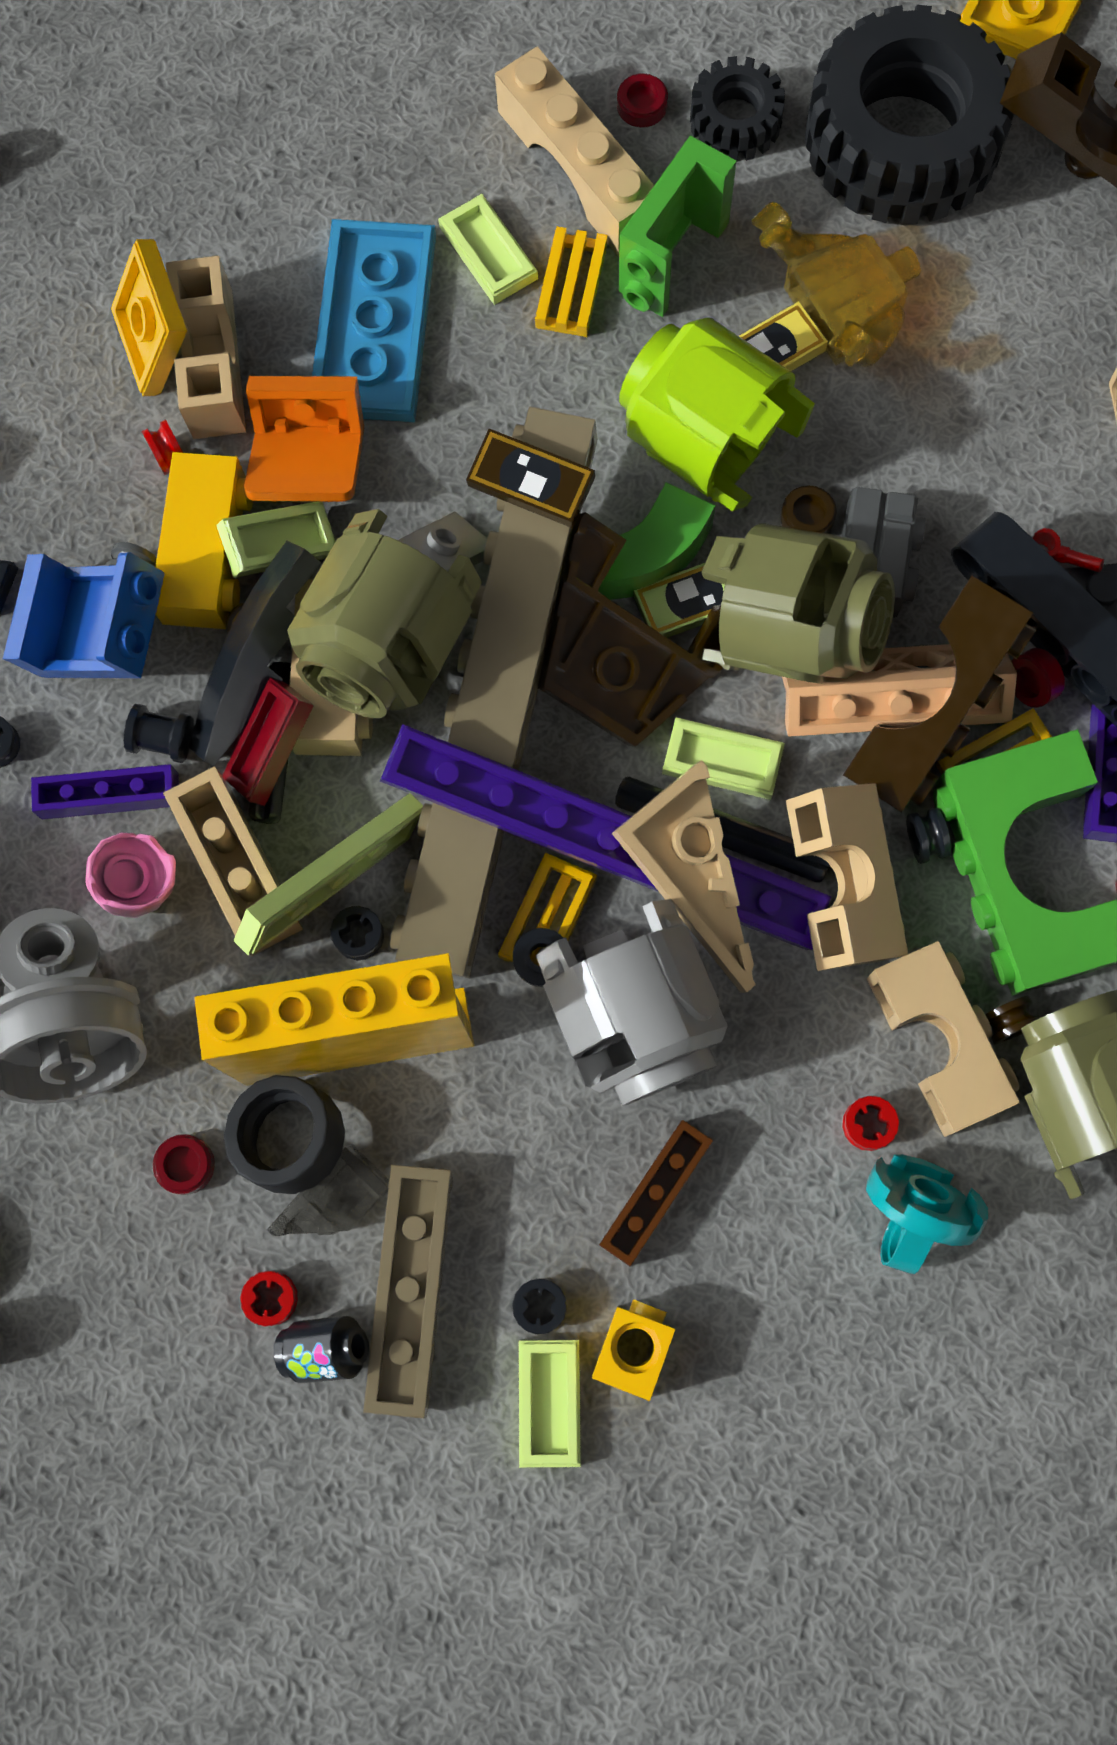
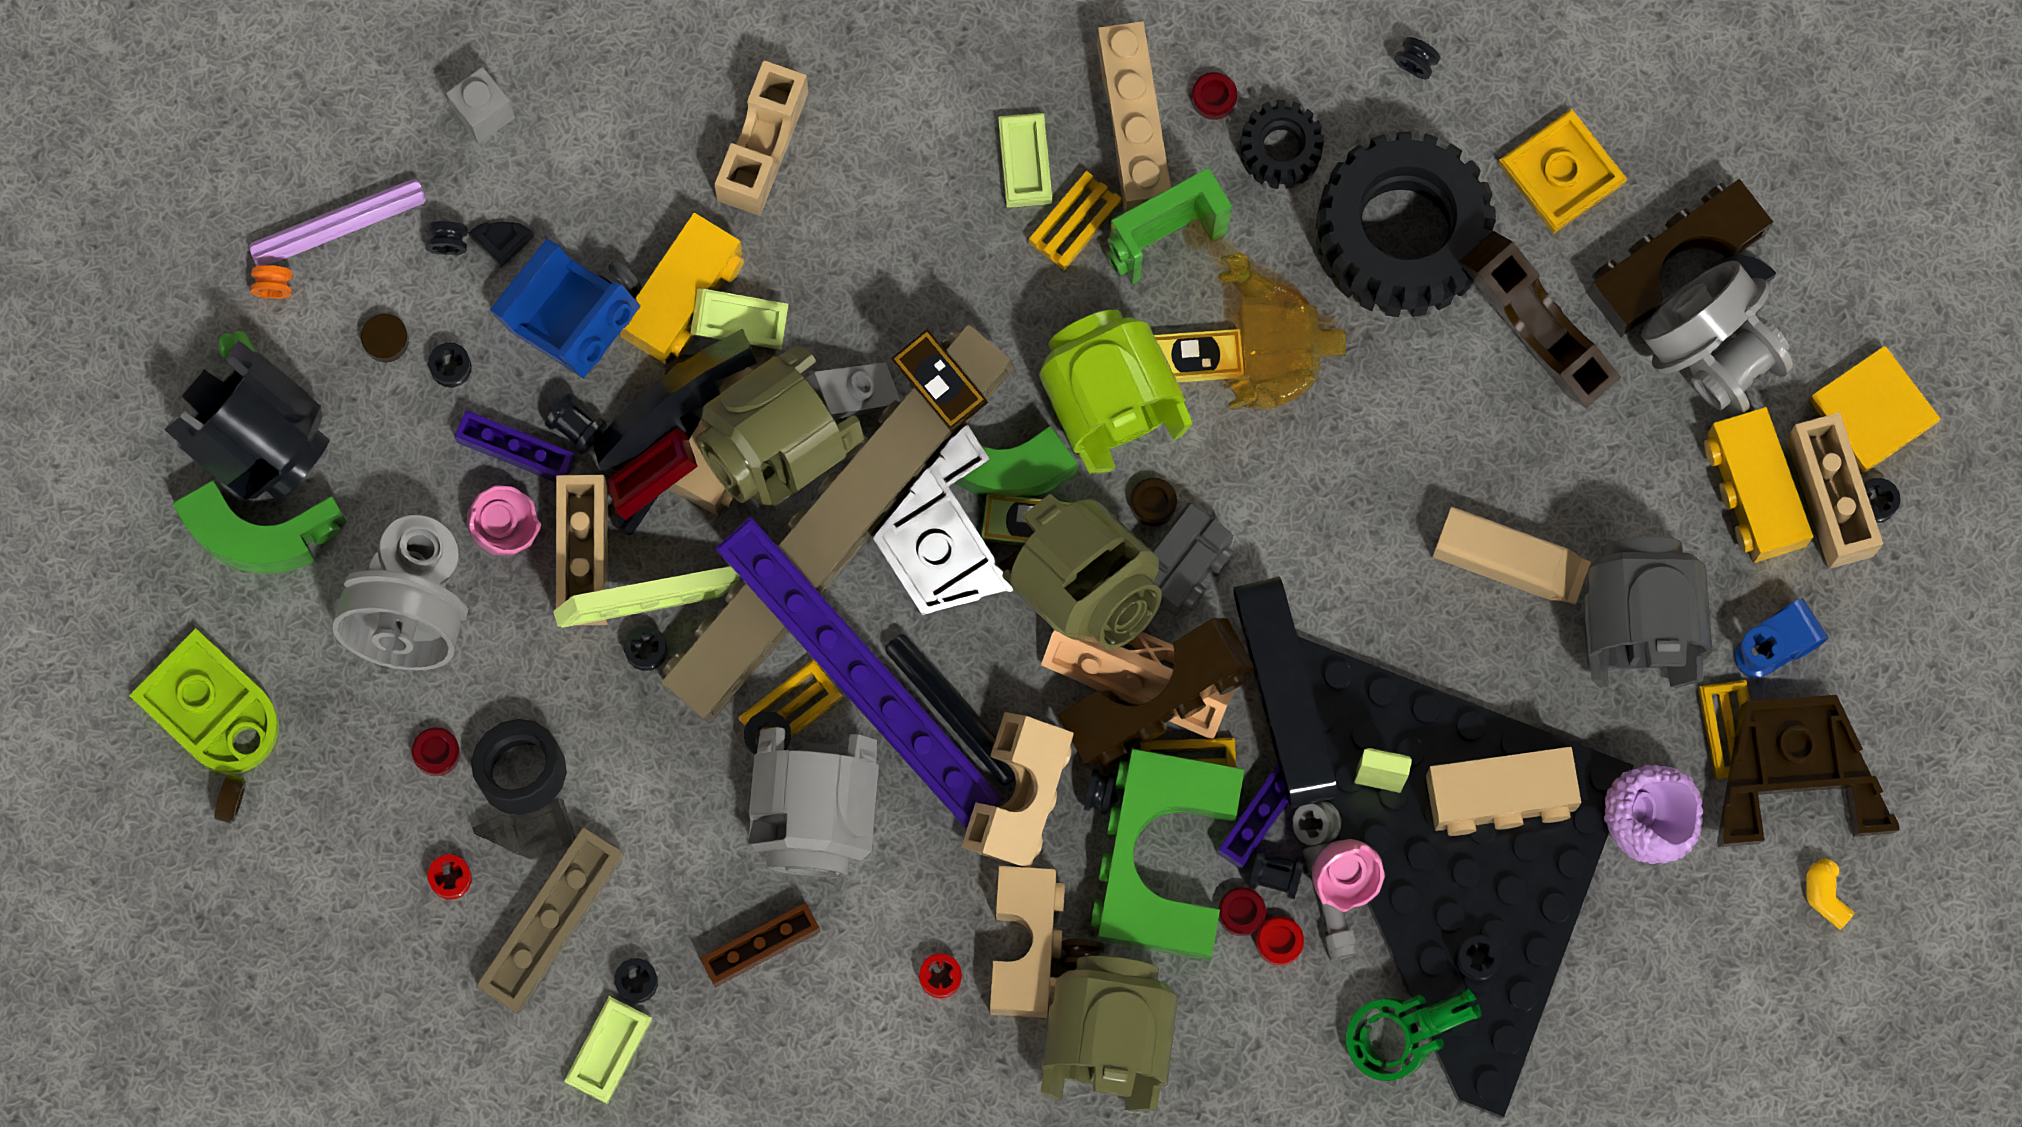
camera: 20 degrees right, 0 degrees up
(148, 317) = (729, 94): yellow tile -> none
(162, 445) = (691, 198): red bush -> none
(304, 438) = (798, 252): orange bracket -> none
(321, 1350) = (468, 929): black brick -> none
(334, 1020) = (597, 706): yellow panel -> none
(376, 312) = (905, 173): dark azure tile -> none
(631, 1378) = (682, 1064): yellow brick -> none
(682, 855) = (904, 712): tan wing -> none
(732, 757) = (983, 656): yellowish green tile -> none
(922, 1210) = (940, 1047): teal tile -> none
(1038, 677) = (1246, 716): dark red tile -> none
(1064, 554) = (1323, 633): red hand -> none

